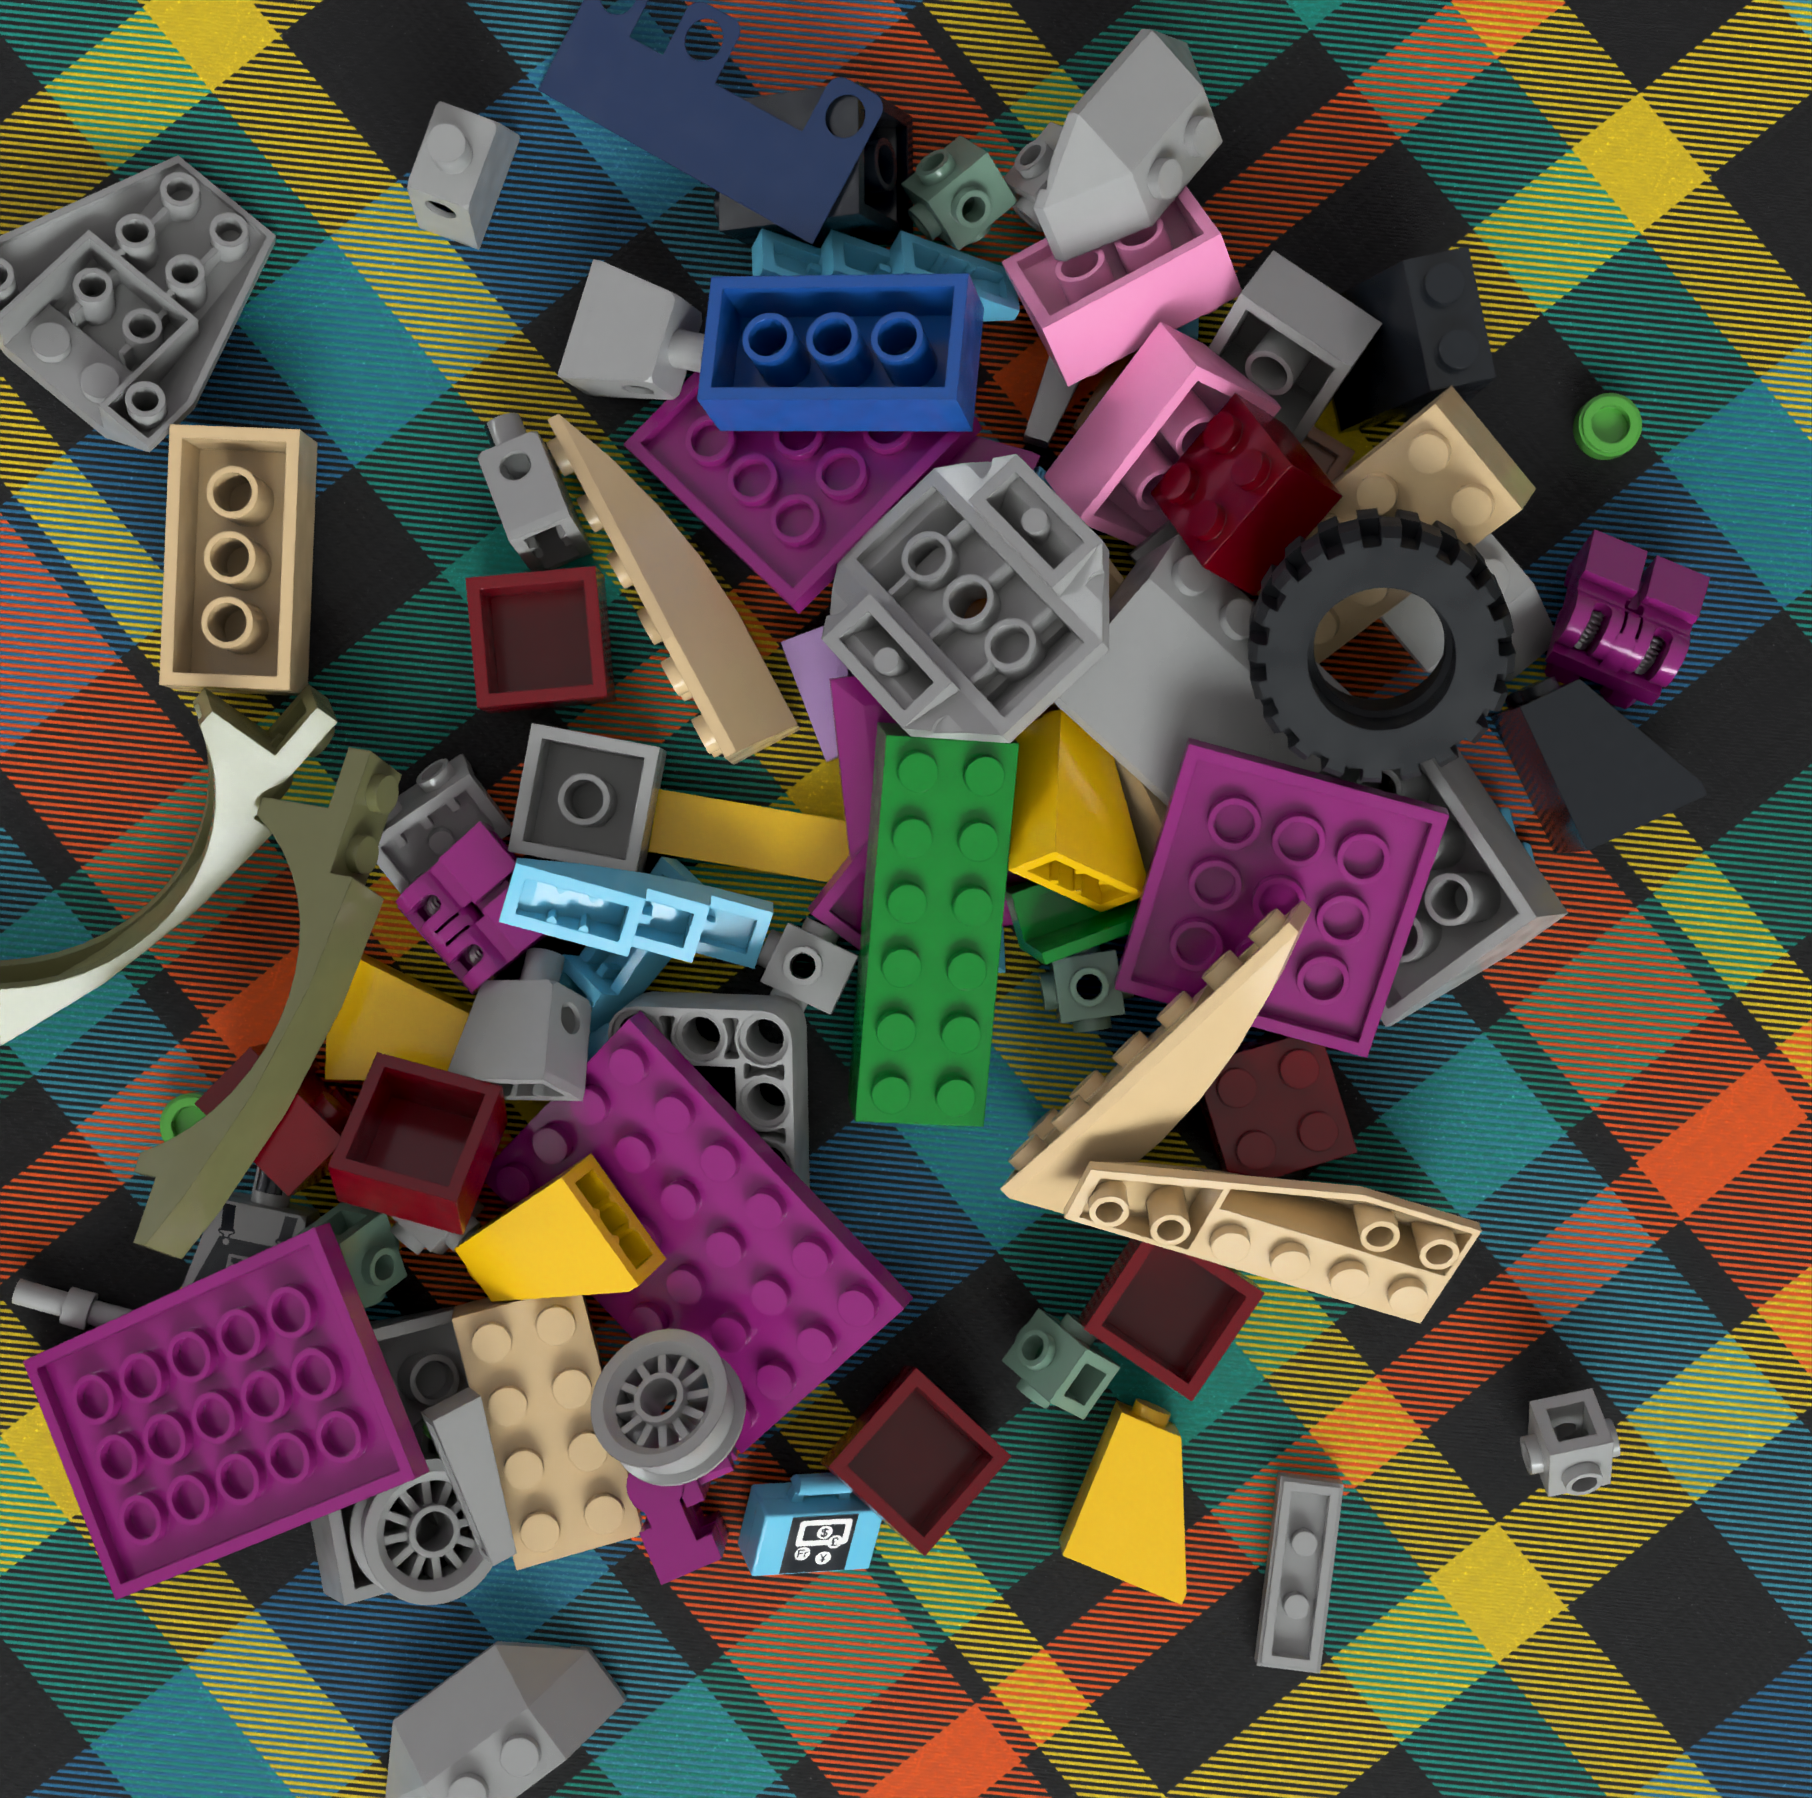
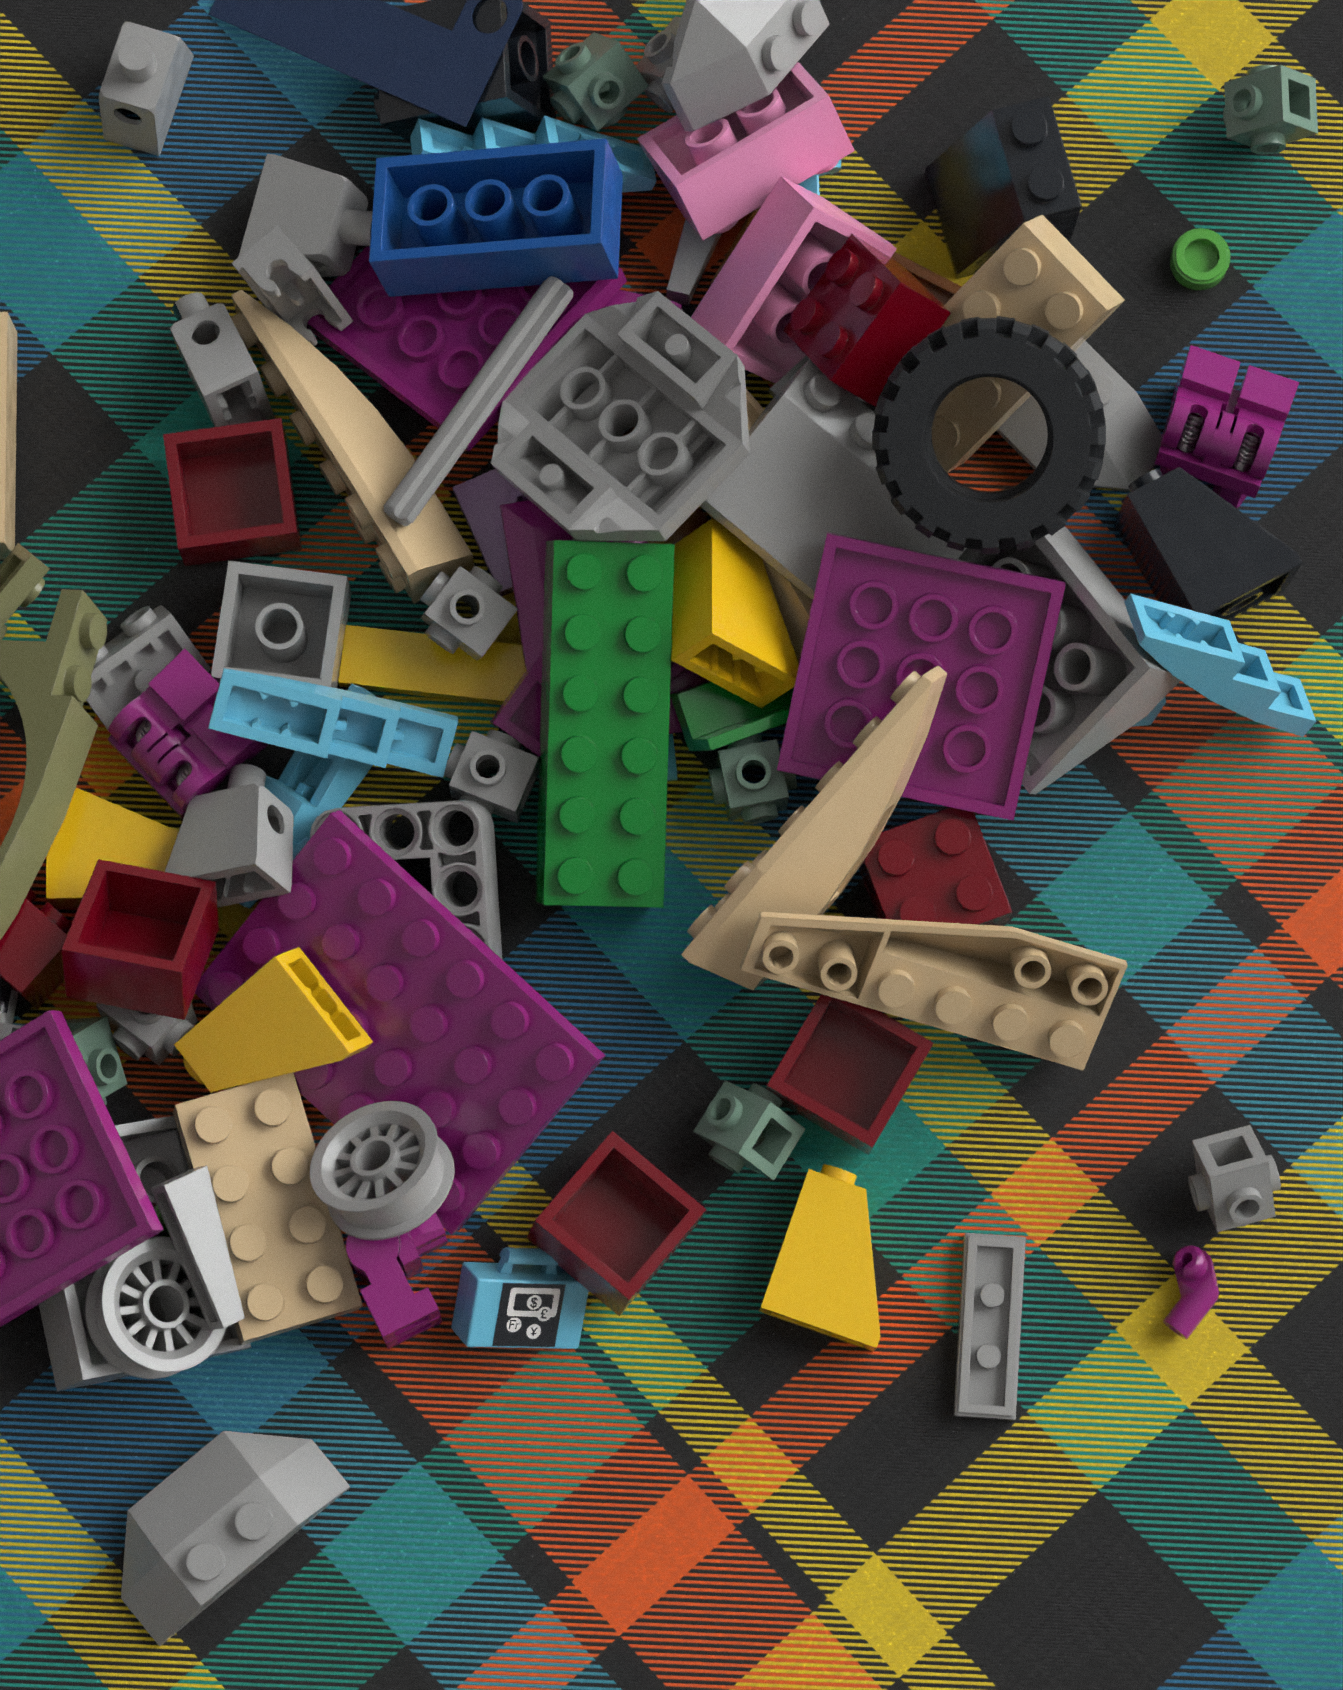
camera: 10 degrees left, 10 degrees down
(609, 414) = (289, 284): none -> light grey hinge
(801, 808) = (488, 609): none -> light grey brick
(811, 563) = (478, 401): none -> light grey axle
(1294, 340) = (904, 191): light grey brick -> none
(1519, 1548) = (1197, 1289): none -> magenta arm
(1603, 901) = (1210, 660): none -> medium azure slope
(1702, 262) = (1270, 108): none -> sand green brick

